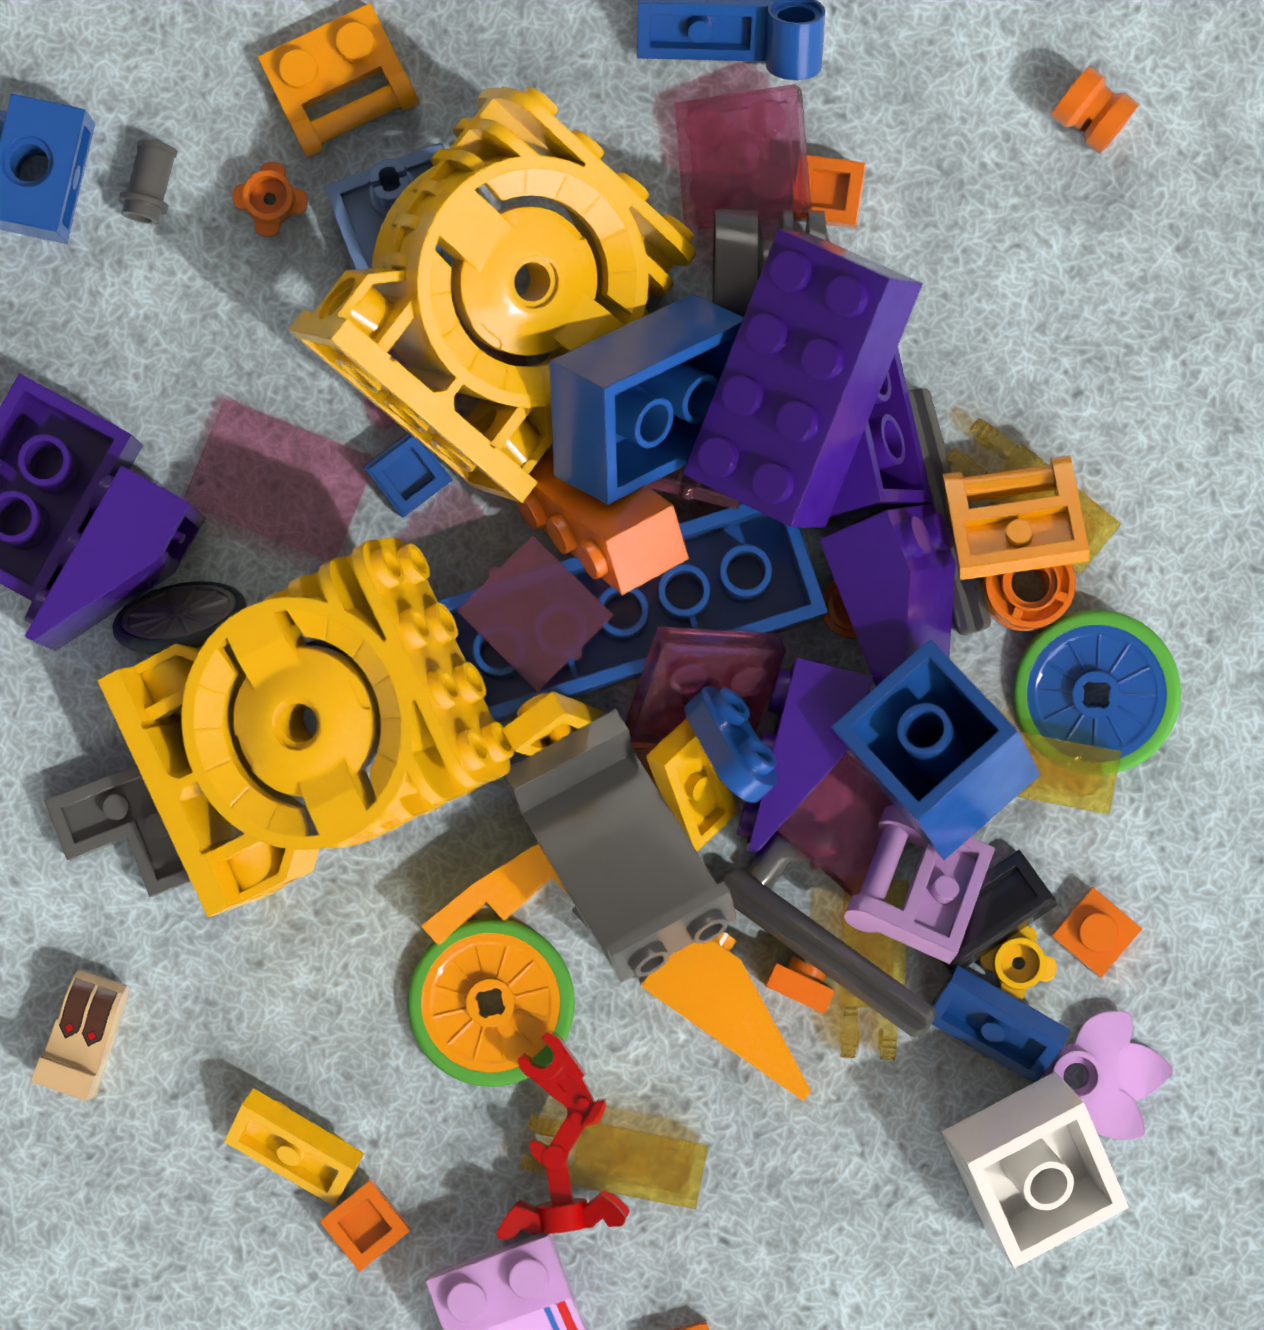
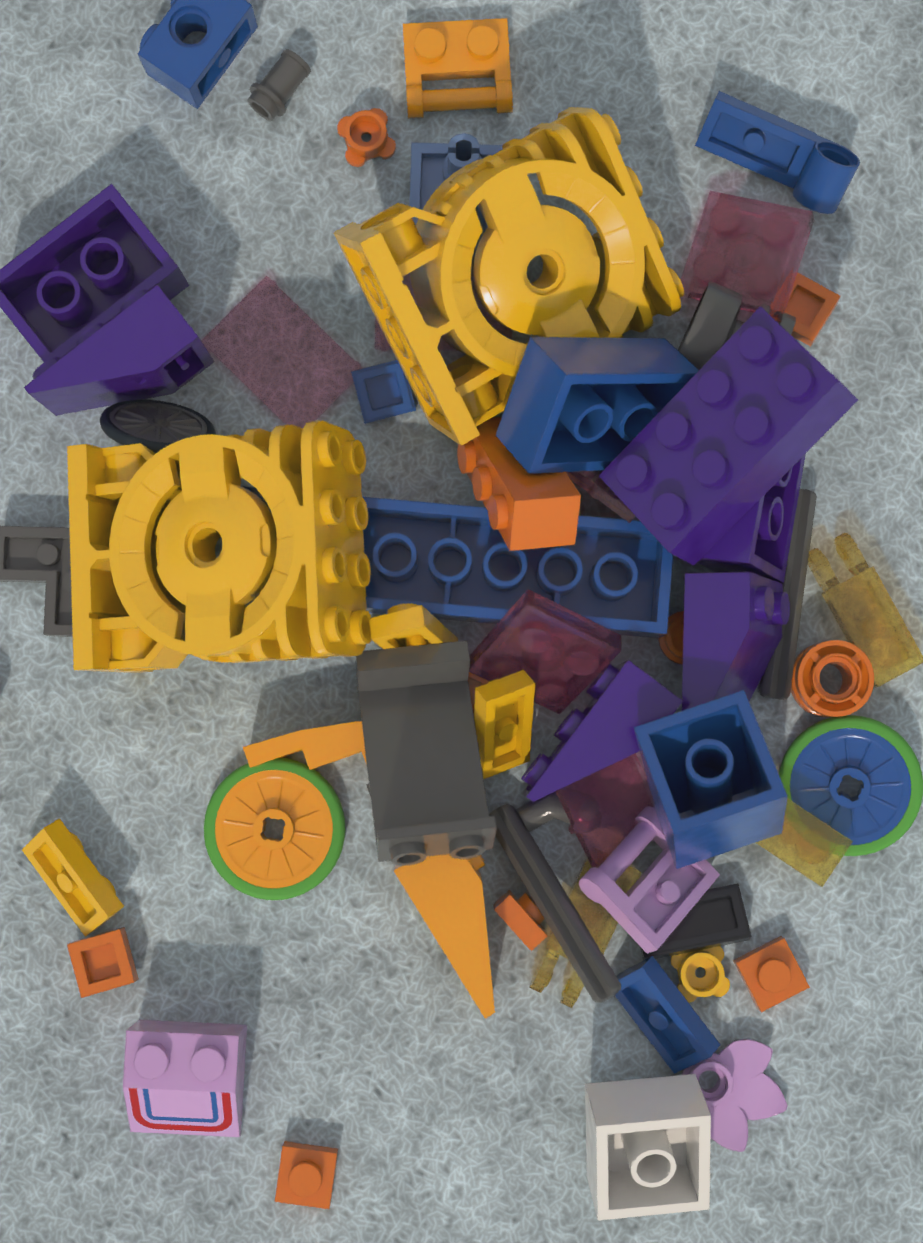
camera: 20 degrees right, 0 degrees up
(535, 613) = (435, 538): clear pink piece -> none
(564, 1213) = (261, 1019): red piece -> none
(629, 1162) = (324, 997): clear yellow hinge -> none
(731, 743) = (547, 706): blue plate -> none
(1016, 533) = (842, 634): light orange plate -> none

